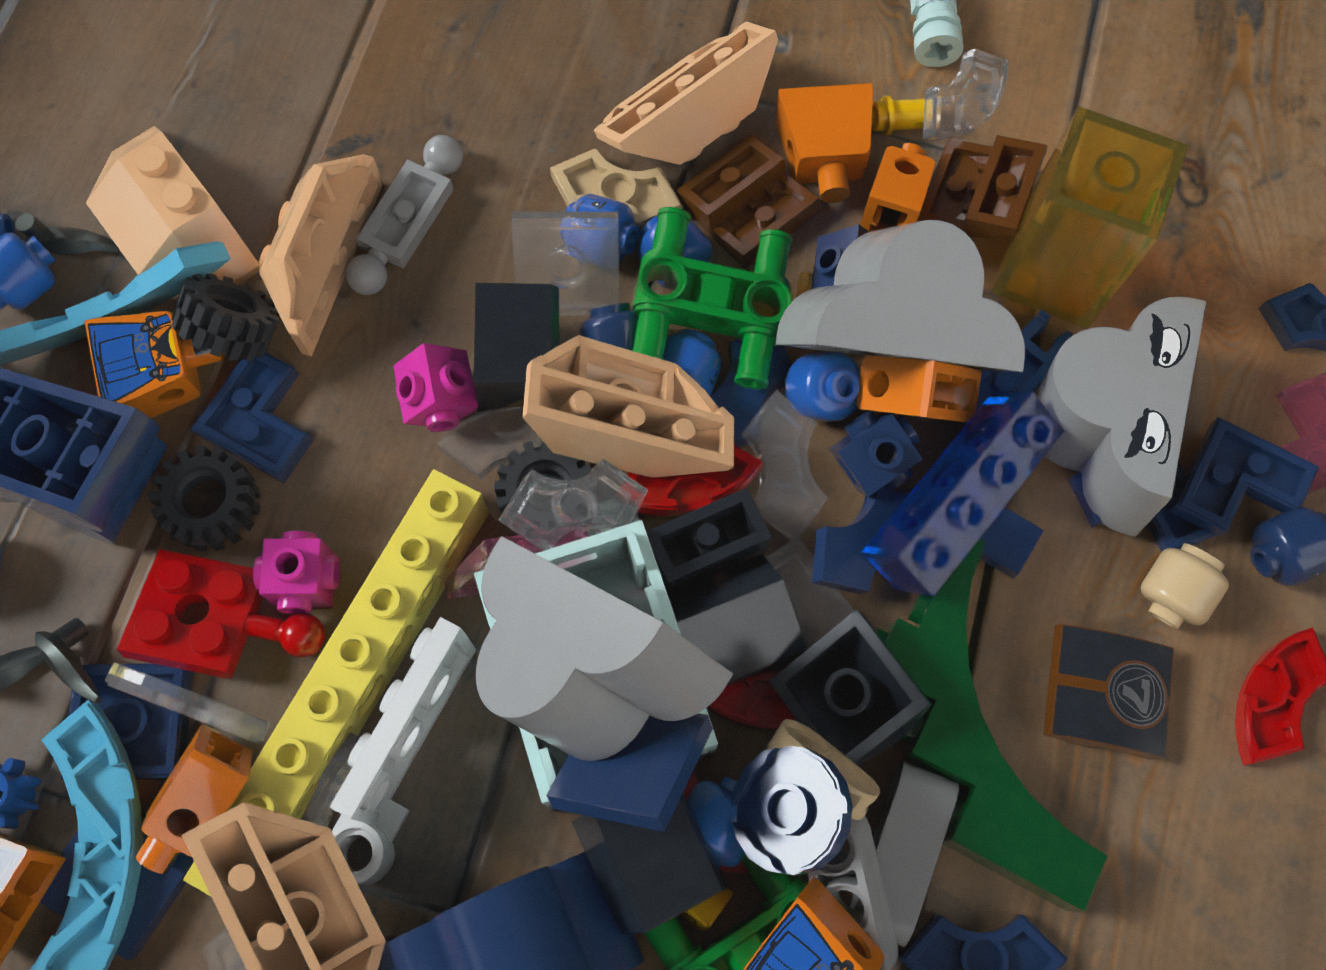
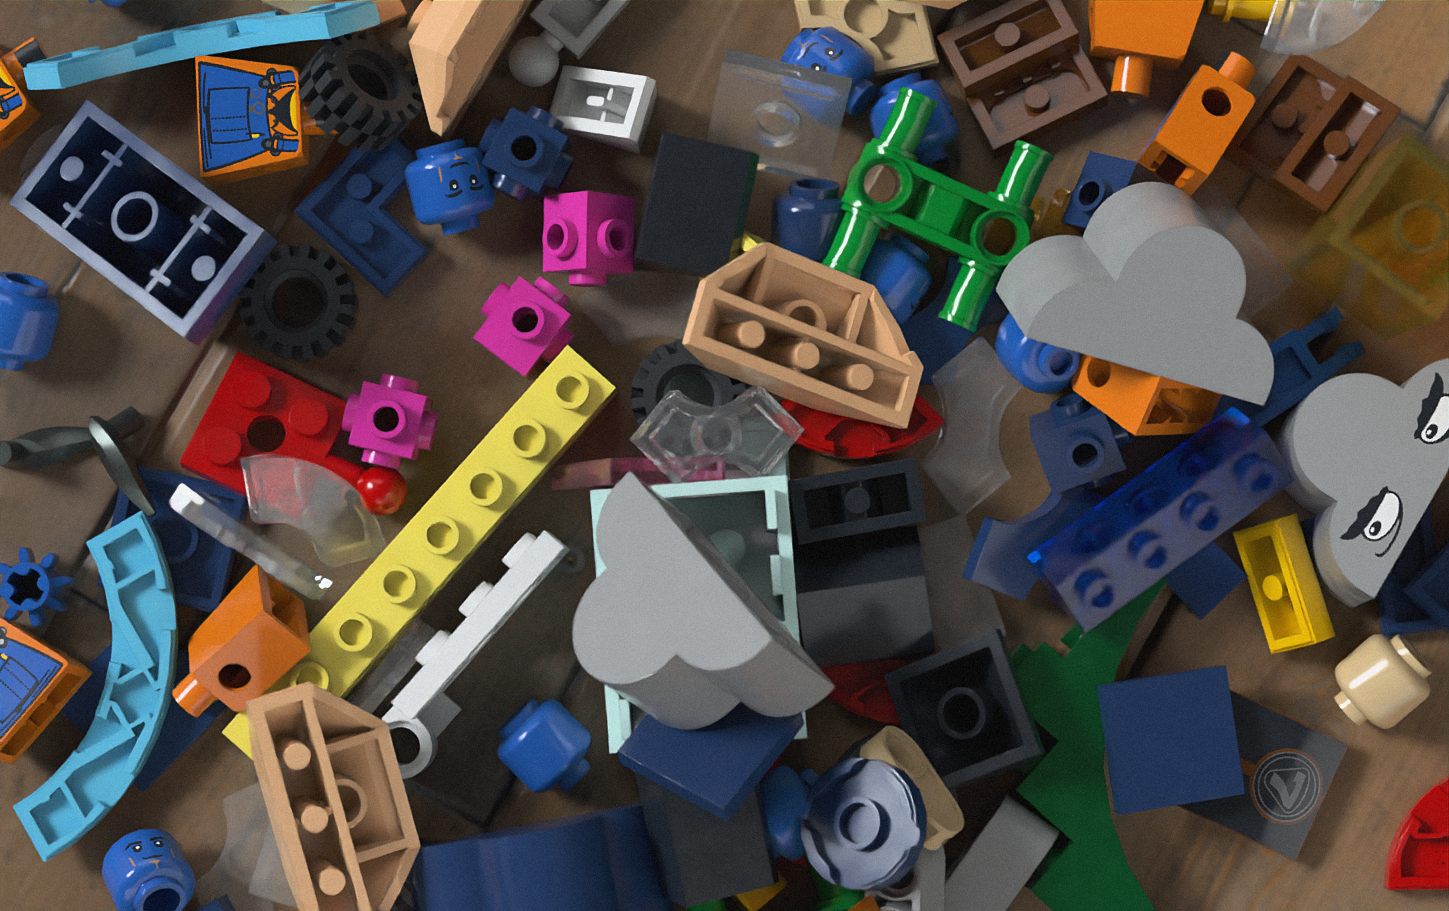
camera: 15 degrees right, 15 degrees up
(237, 653) = (316, 503): none -> clear tile
(314, 376) = (450, 186): none -> blue head
(371, 337) = (530, 177): none -> dark blue brick
(395, 467) = (525, 350): none -> dark pink brick
(432, 292) = (605, 106): none -> white slope
(486, 821) = (544, 745): none -> blue head
(1030, 674) = (1170, 739): none -> dark blue tile
(1076, 528) = (1284, 584): none -> yellow brick

